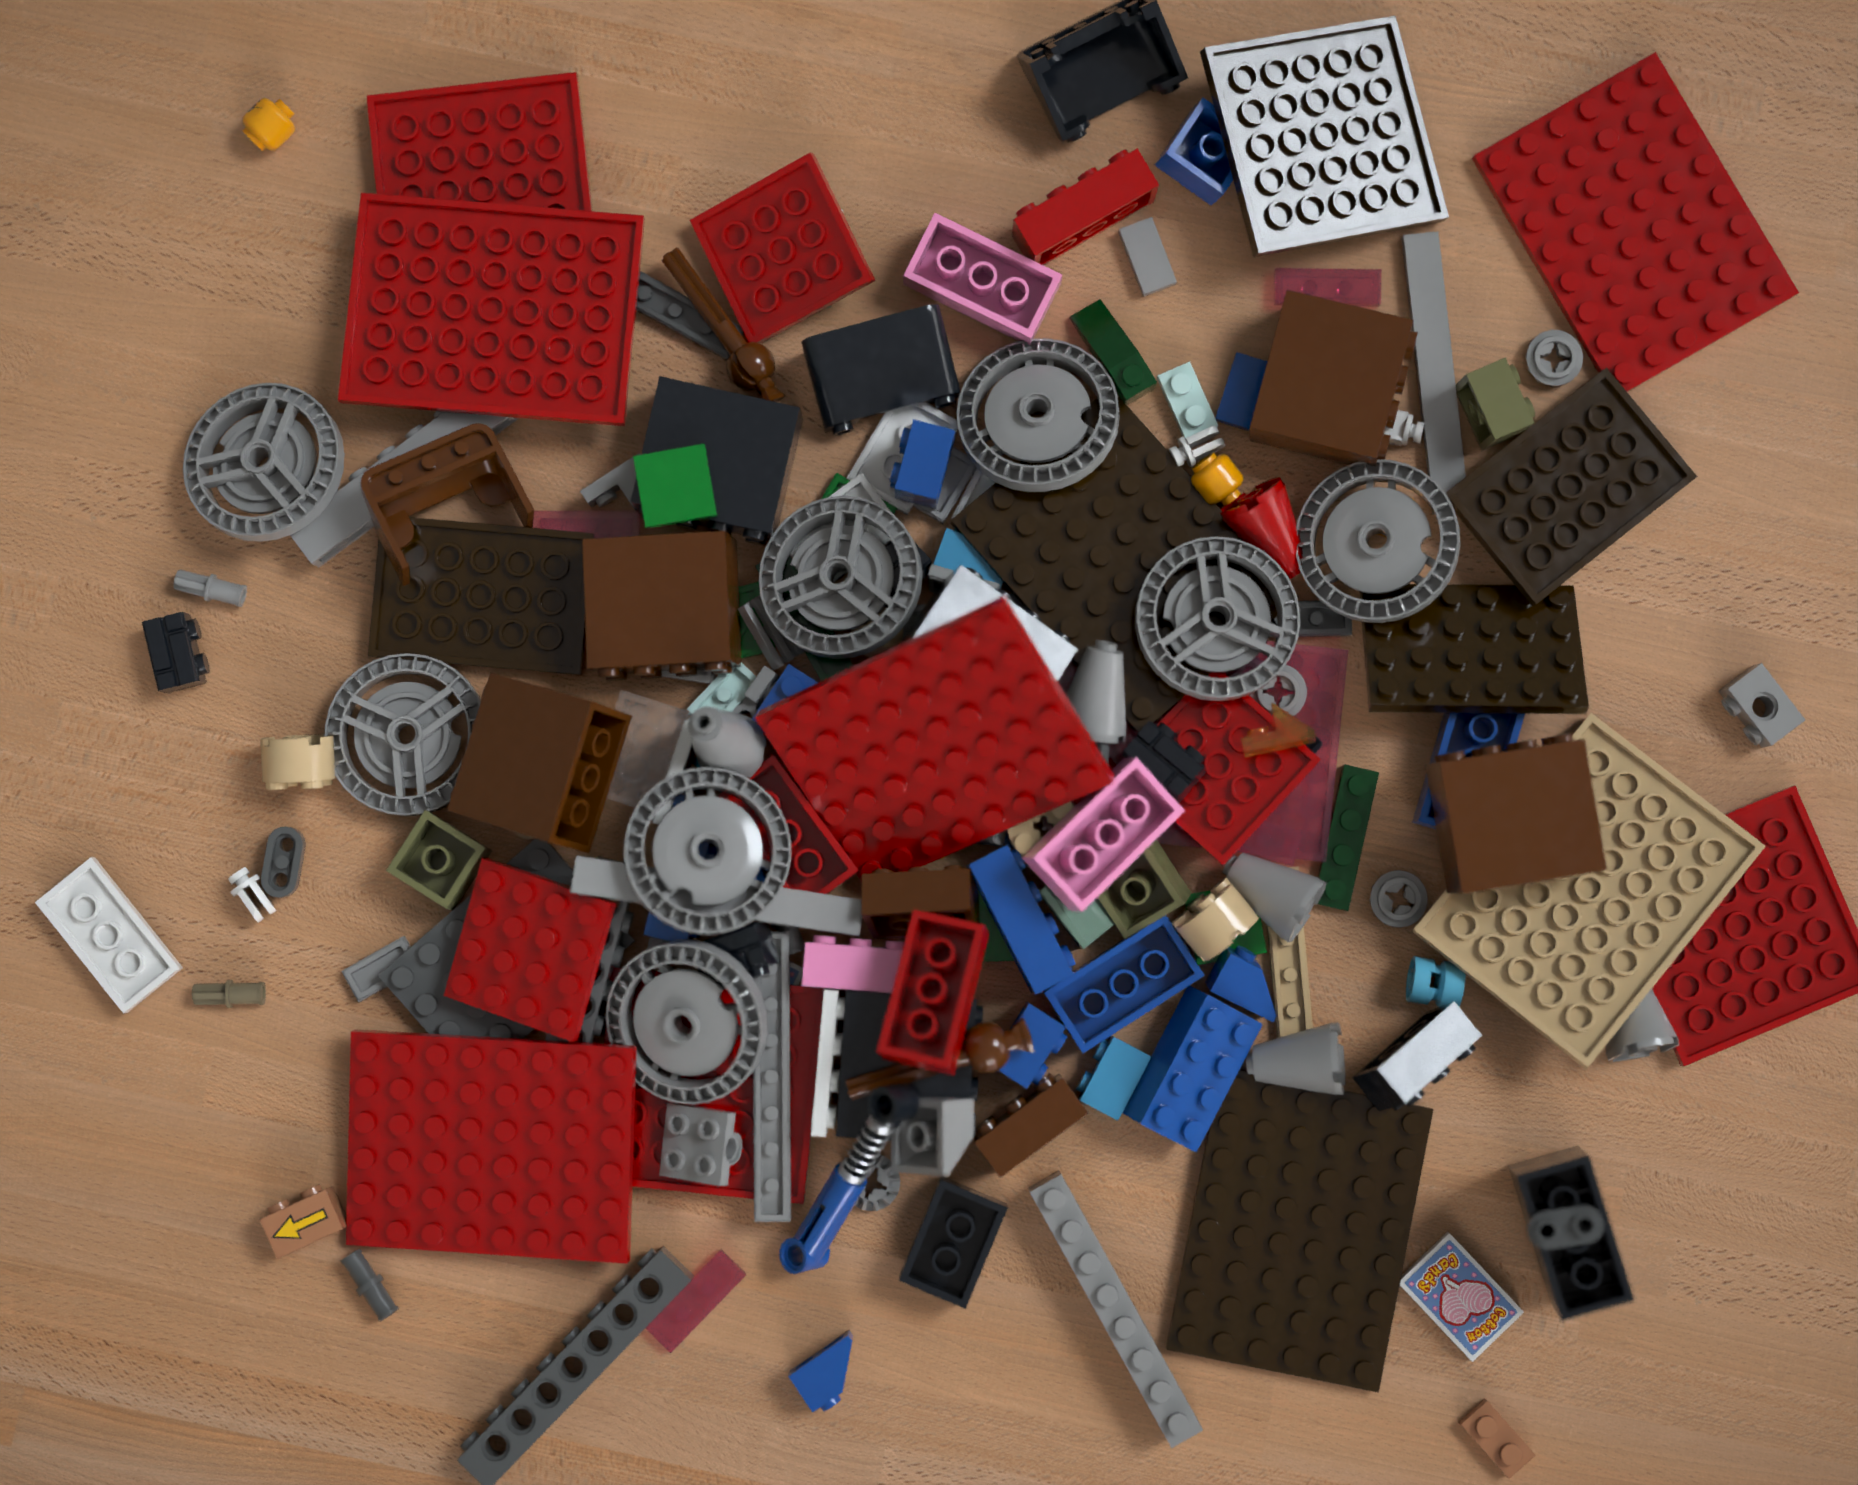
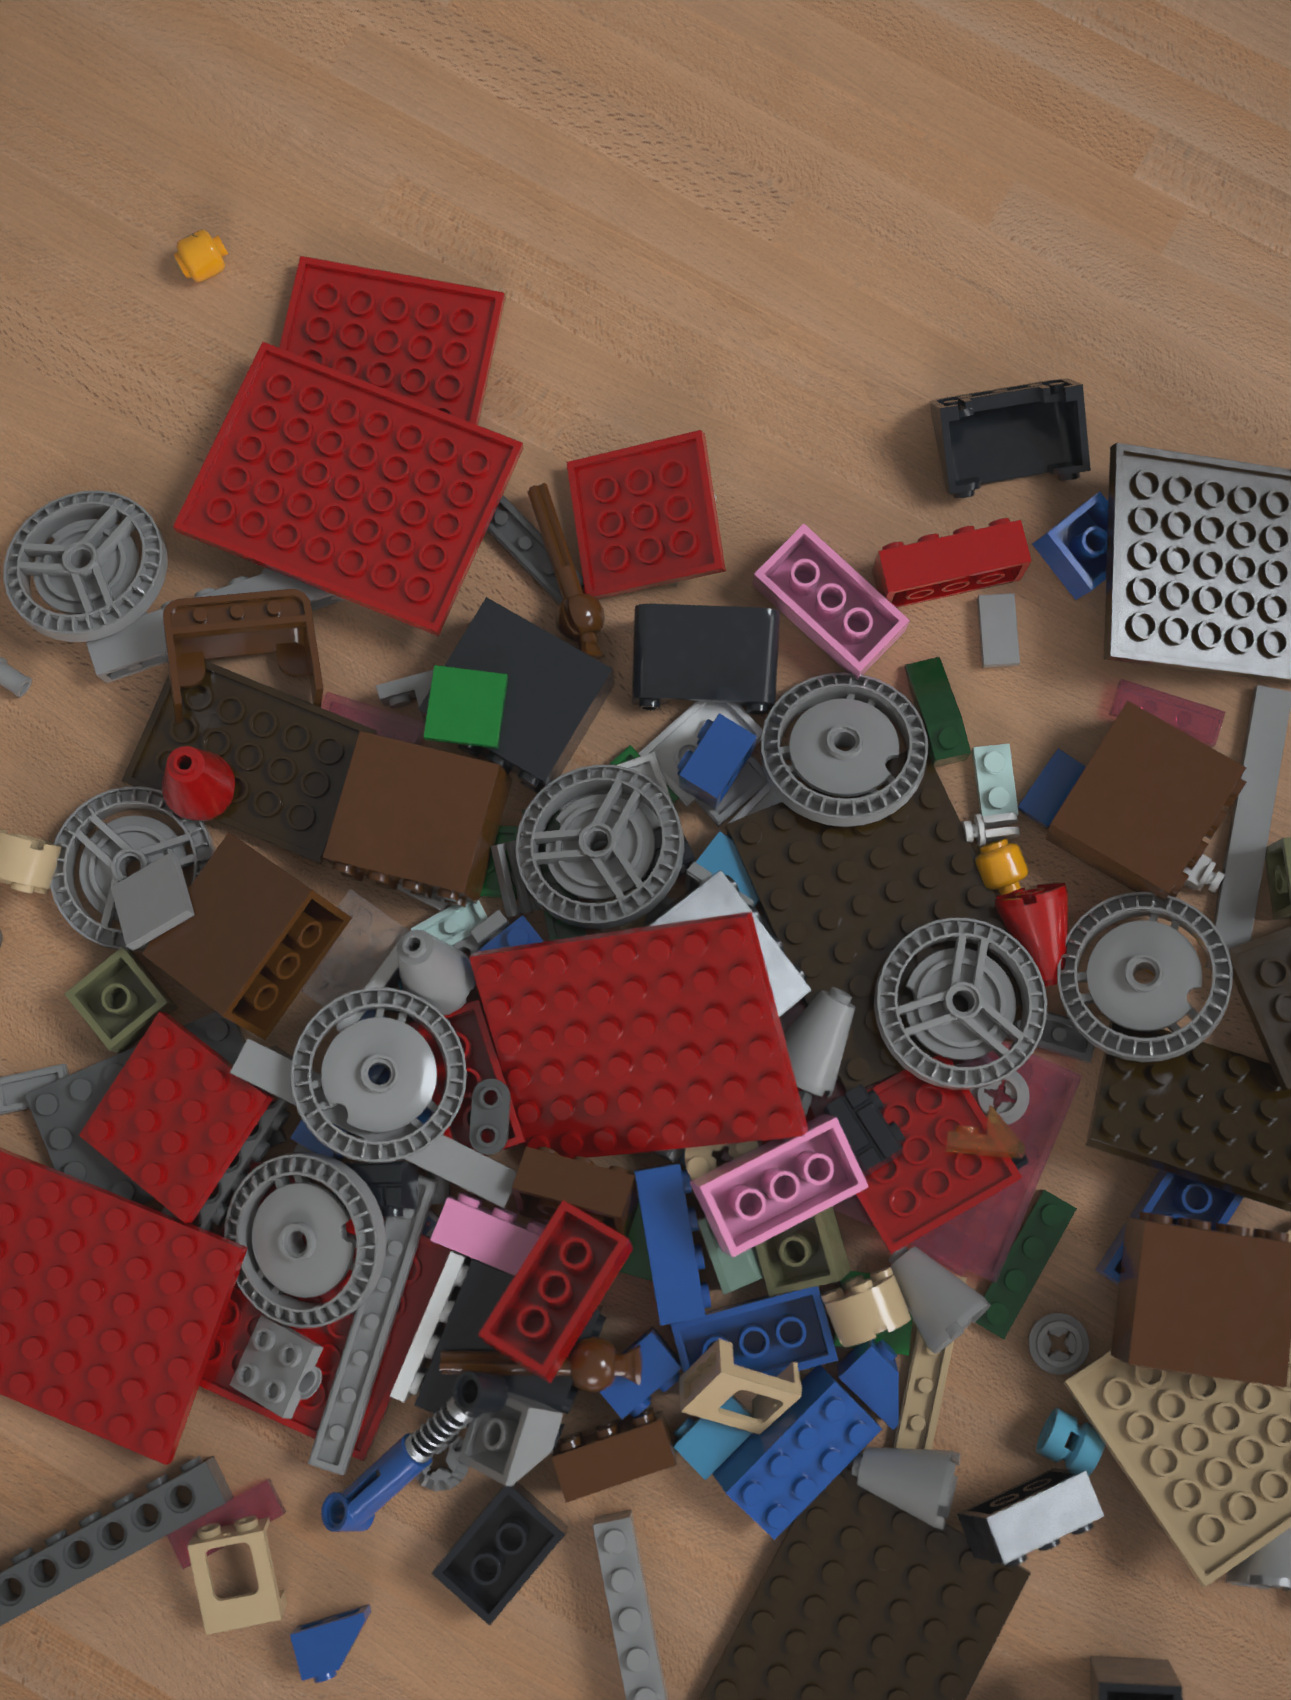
camera: 25 degrees right, 5 degrees down
(440, 758) = (152, 901): none -> light grey tile
(443, 637) = (197, 784): none -> red cone
(737, 1369) = (242, 1610): none -> tan window
(819, 857) = (490, 1116): none -> dark grey plate
(1101, 1024) = (716, 1379): none -> tan window

